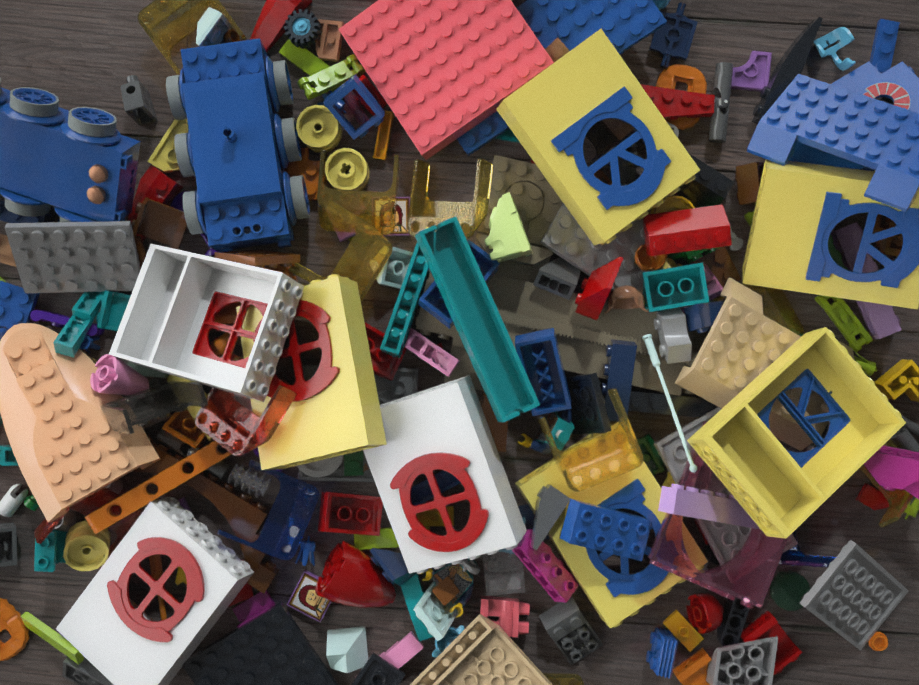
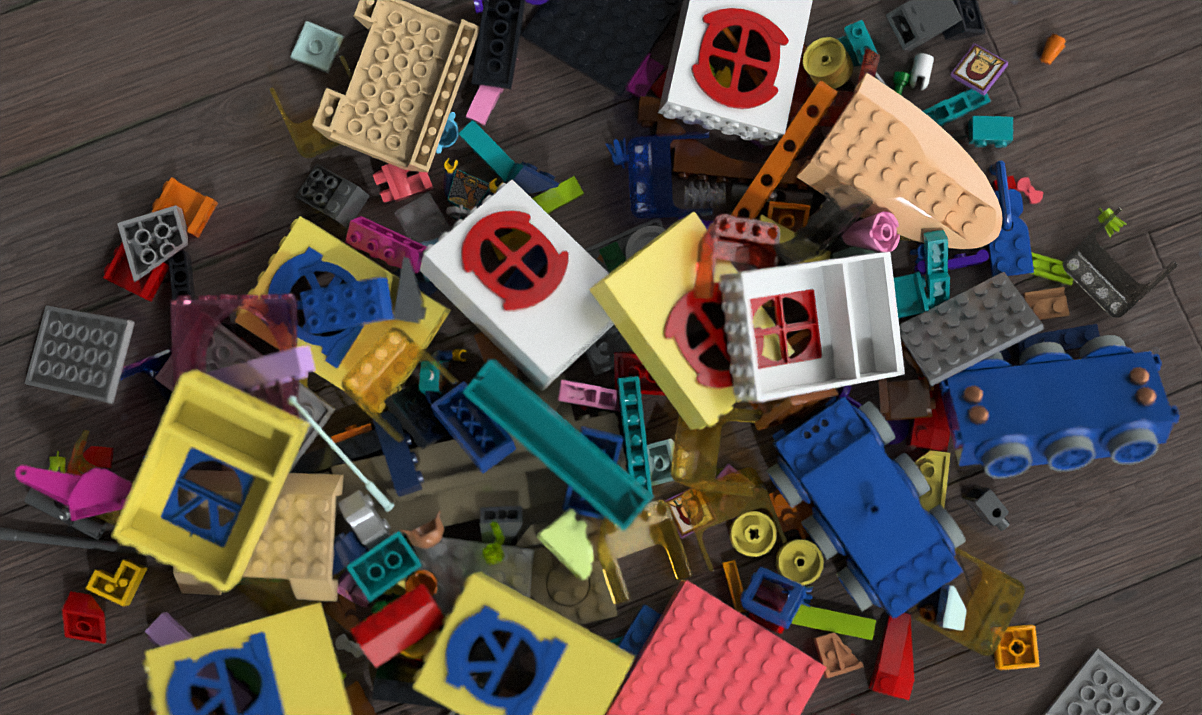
camera: 155 degrees right, 5 degrees down
(219, 344) = (793, 312): orange cone -> none
(303, 28) = (861, 652): black wheel -> none
(305, 599) = (593, 114): tile -> none
(330, 77) = (811, 617): lime plate -> none
(347, 648) = (537, 80): light aqua slope -> none
(350, 514) = (594, 207): red slope -> none
(354, 579) = (561, 148): red cylinder -> none
(434, 613) = (471, 155): light aqua plate -> none
(445, 590) = (469, 178): dark orange slope -> none
(576, 254) = (493, 552): none -> clear neon green plate
(597, 289) = (458, 528): red slope -> none
(648, 418) = (352, 431): none -> orange plate
(650, 454) = (334, 396): dark green slope -> none
(662, 652) = (236, 215): blue brick -> none
(683, 630) = (224, 245): yellow plate -> none
(705, 612) = (212, 272): red cylinder -> none
(788, 590) = (144, 332): clear green tile -> none
(845, 321) = (199, 614): lime plate -> none
(867, 366) = (164, 580): lime piece -> none
(878, 641) = (32, 321): orange plate -> none

